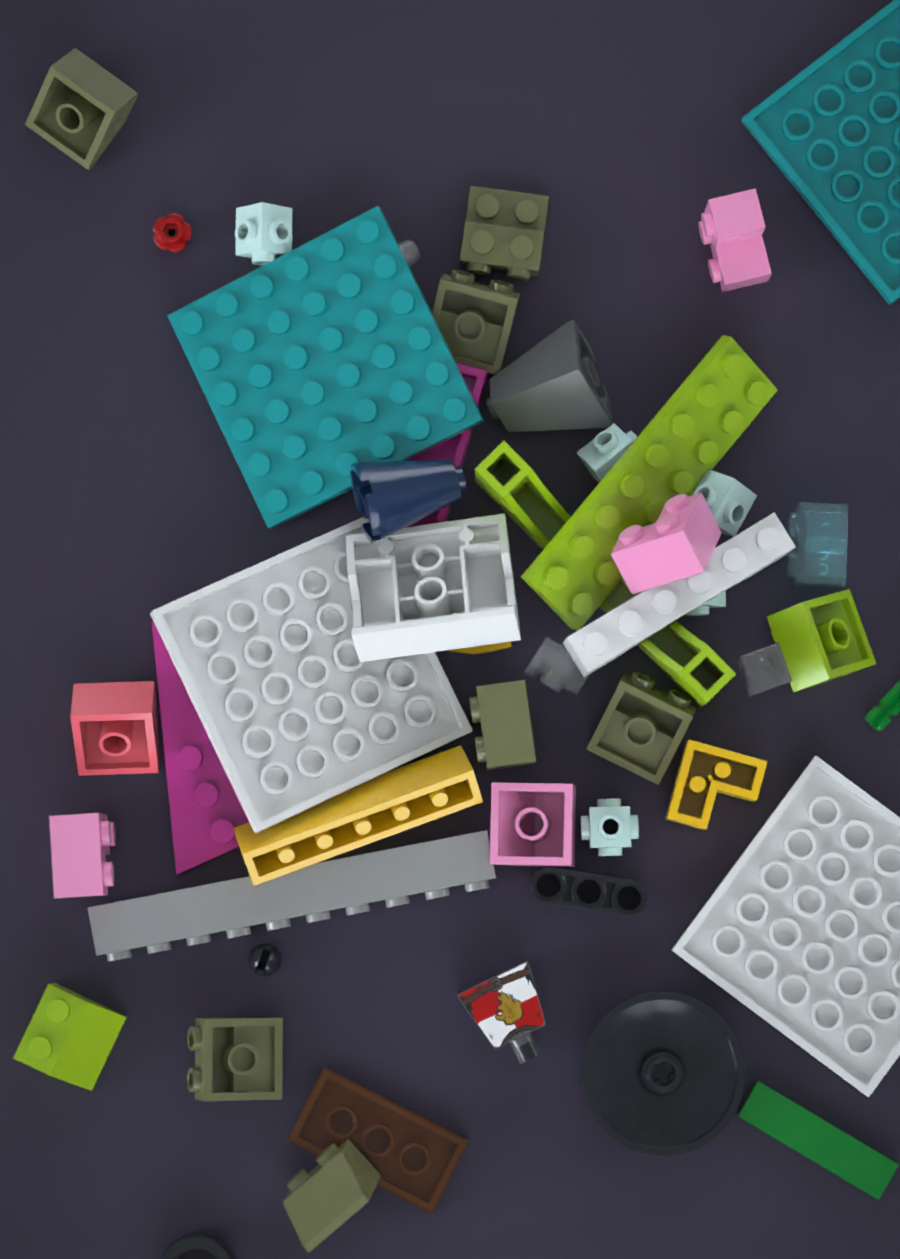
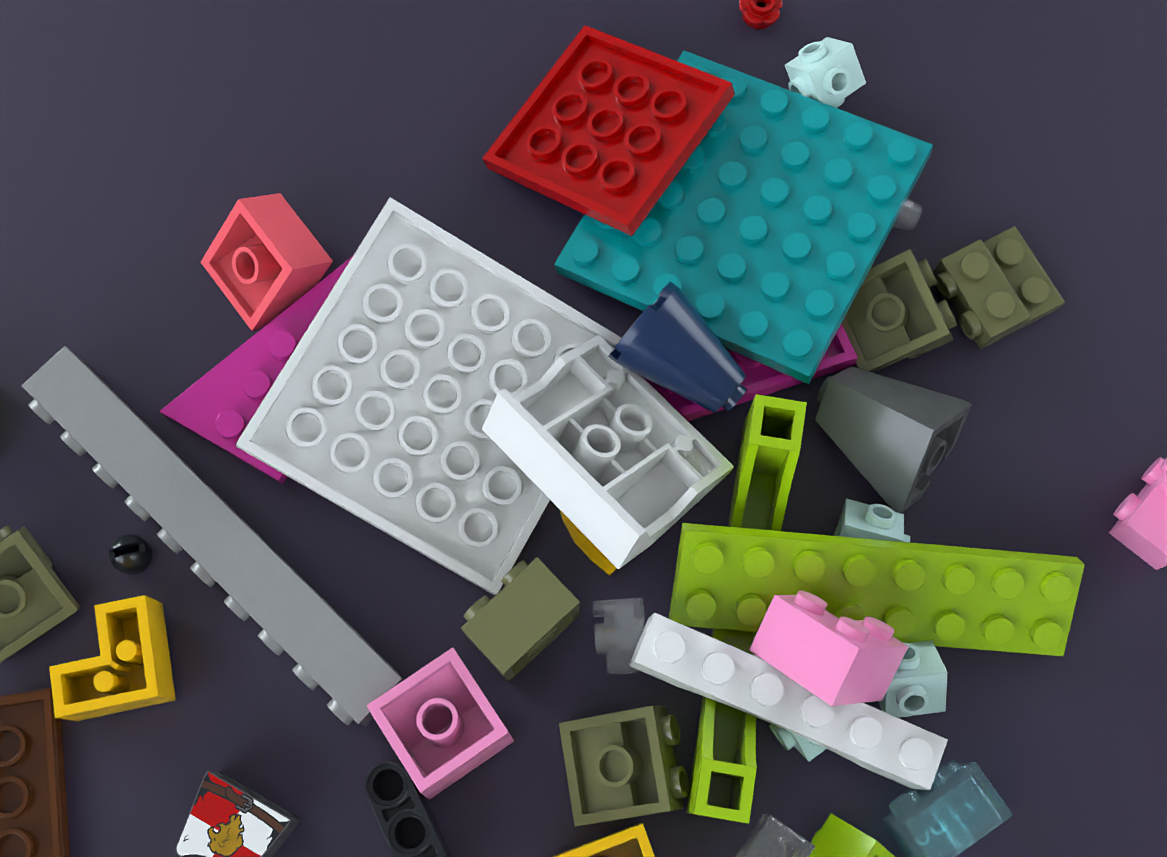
camera: 50 degrees right, 10 degrees down
(80, 854) = (109, 298): bright pink brick -> none
(195, 417) = (609, 128): none -> red plate
(354, 1007) = (131, 665): none -> yellow brick
(362, 815) = (331, 542): yellow brick -> none
(593, 827) = (512, 796): light aqua brick -> none

